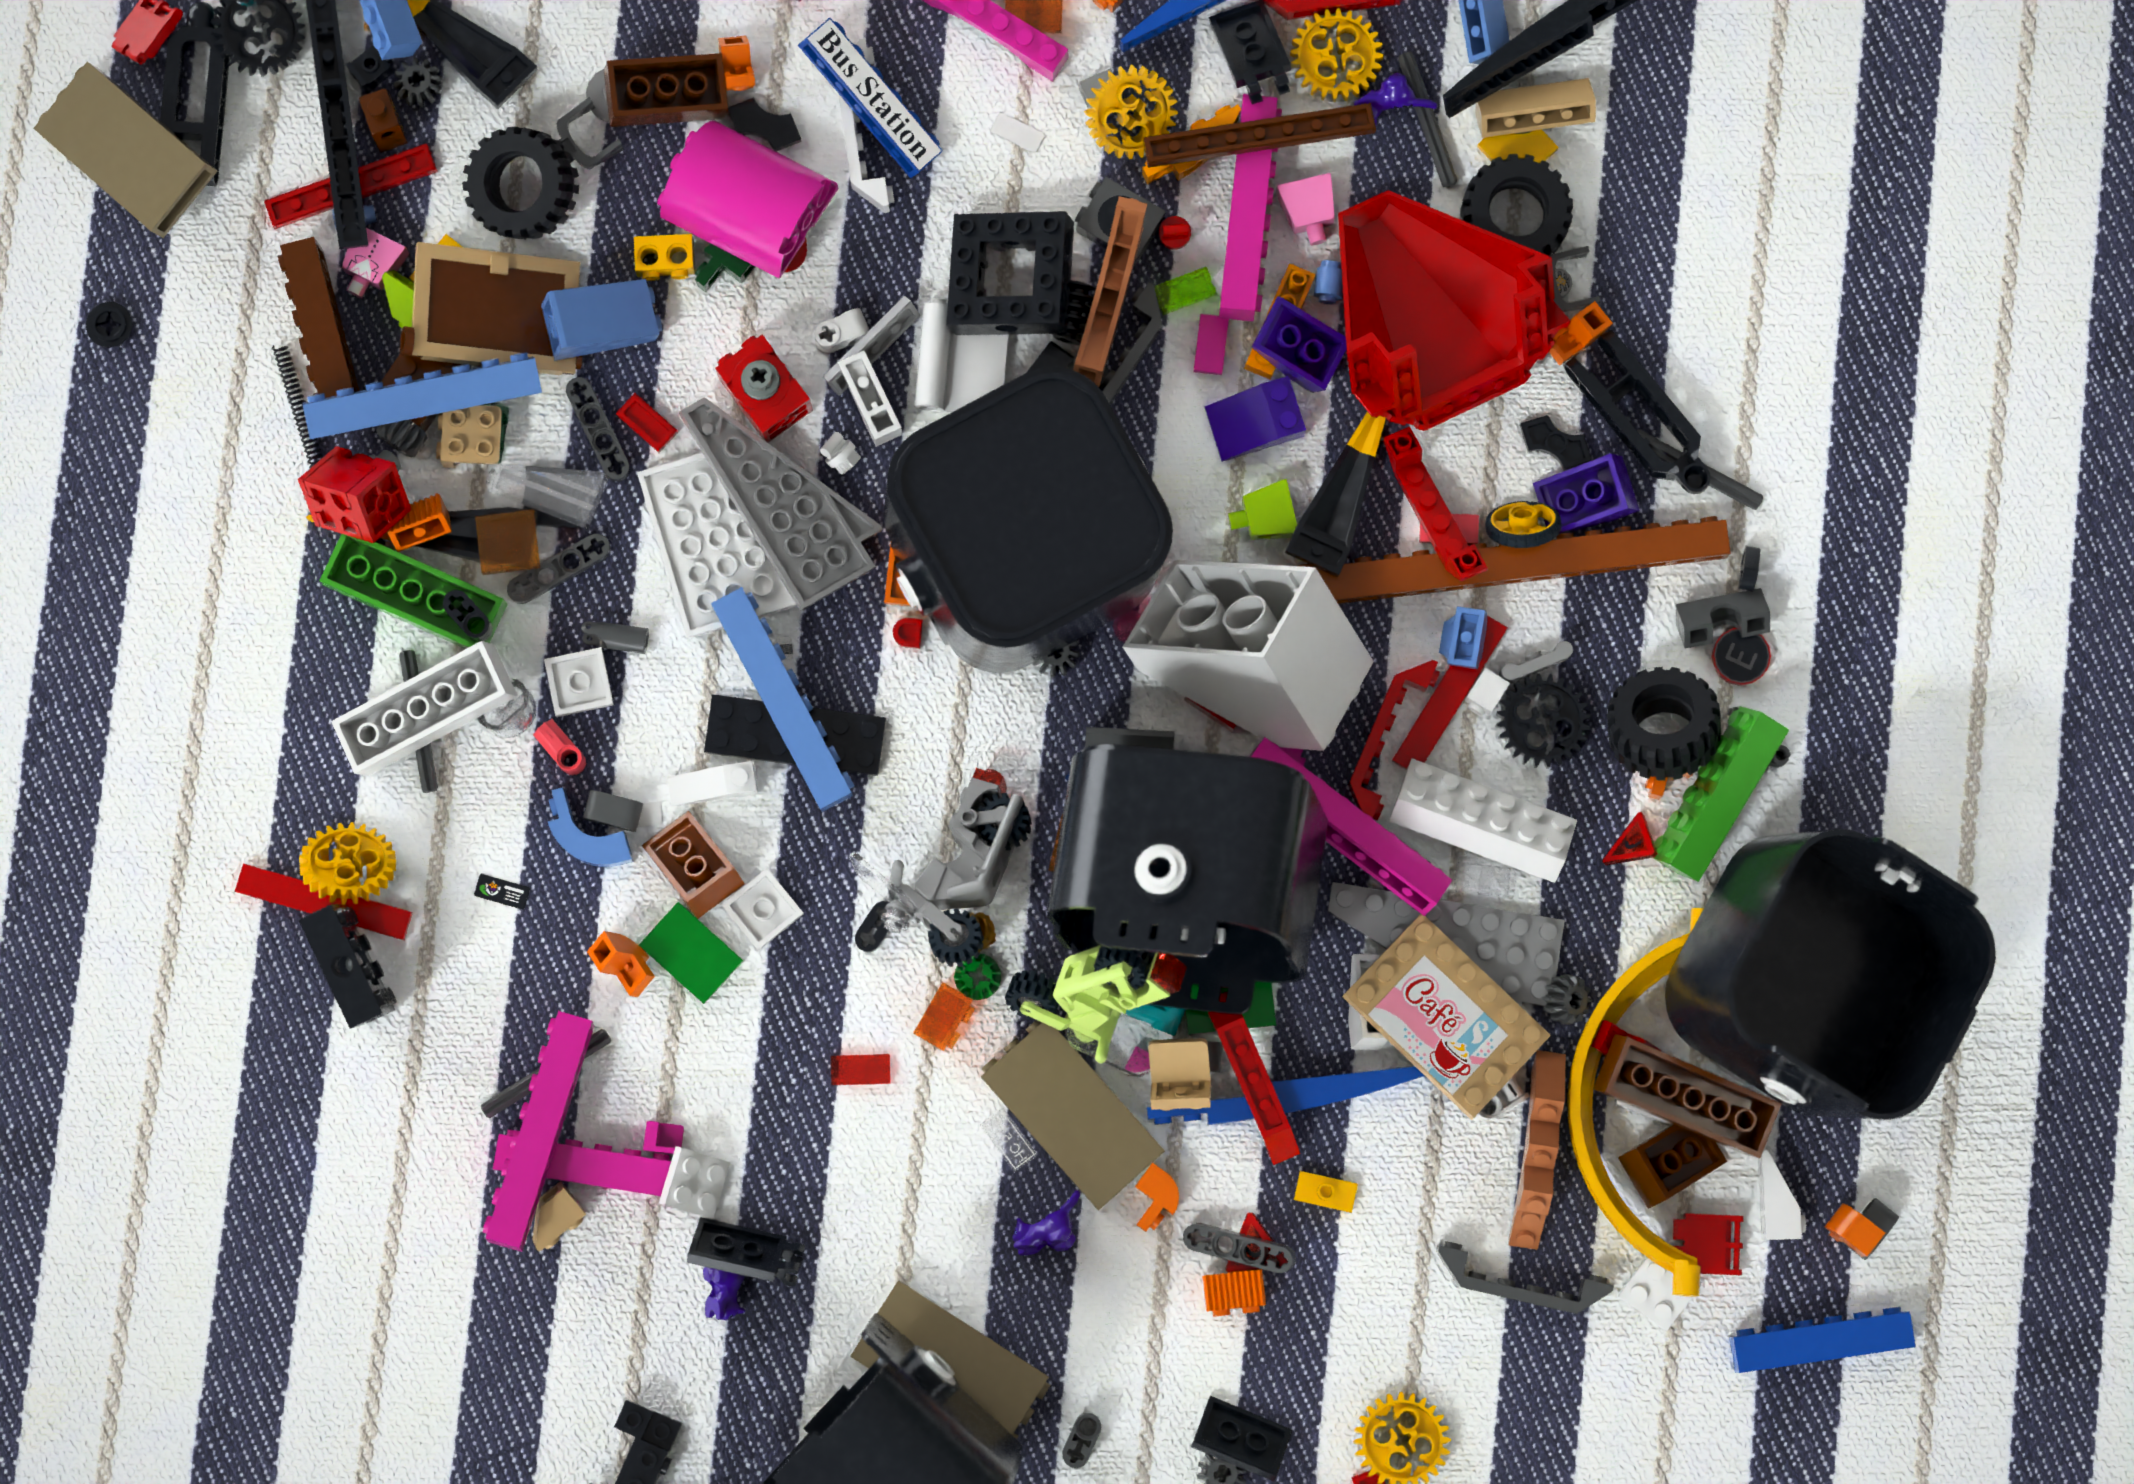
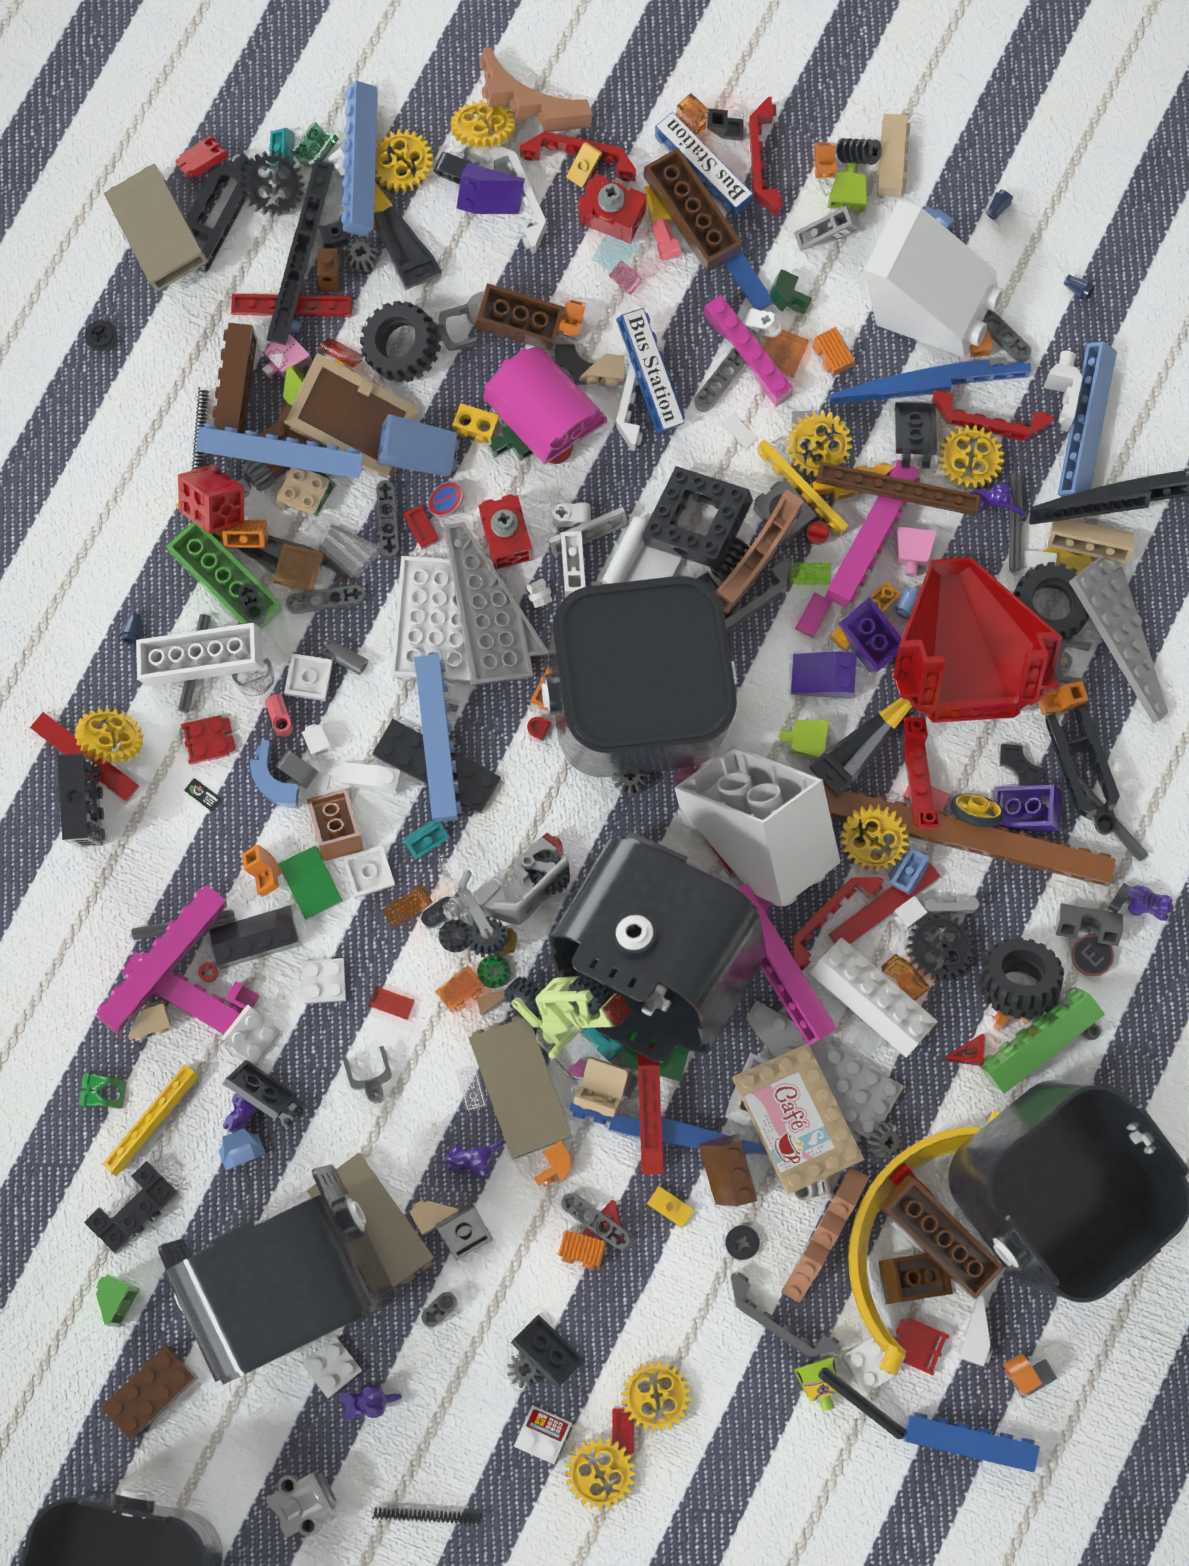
camera: 25 degrees right, 5 degrees down
(317, 711) = (131, 629): none -> dark blue cone
(444, 226) = (341, 352): none -> clear red tile
(479, 815) = (208, 739): none -> red plate
(514, 1336) = (91, 1095): none -> green piece
(607, 1131) = (208, 965): none -> red bush
(608, 1344) = (150, 1120): none -> yellow plate
(623, 762) = (316, 740): none -> white brick
(646, 1053) = (254, 937): none -> black slope
(665, 374) = (446, 499): none -> piece
(741, 1335) = (240, 1148): none -> medium blue slope
(760, 1075) = (323, 981): none -> white plate
(810, 117) = (606, 370): none -> tan slope
(819, 836) = (425, 838): none -> teal slope
(831, 935) = (408, 906): none -> clear orange slope
(878, 1186) = (371, 1085): none -> dark grey piece
(918, 959) = (445, 939): none -> black gear
(966, 70) = (719, 377): none -> dark grey beam
(987, 1018) = (489, 1001): none -> medium nougat piece
(1023, 1323) = (429, 1214): none -> tan slope
(1074, 1328) = (464, 1231): none -> tile
(1140, 184) = (808, 494): none -> yellow plate
(1384, 1118) = (728, 1171): none -> reddish brown slope
(1414, 589) = (863, 851): none -> yellow gear
(1444, 1212) = (751, 1238): none -> black gear
(1474, 158) = (1033, 558): none -> white sticker
(1514, 776) = (906, 976): none -> clear orange slope
(1599, 193) = (1114, 614): none -> light grey wing
(1602, 1339) = (814, 1386): none -> lime torso
(1666, 1346) = (862, 1403): none -> black axle
(1785, 558) = (1147, 901): none -> dark purple animal

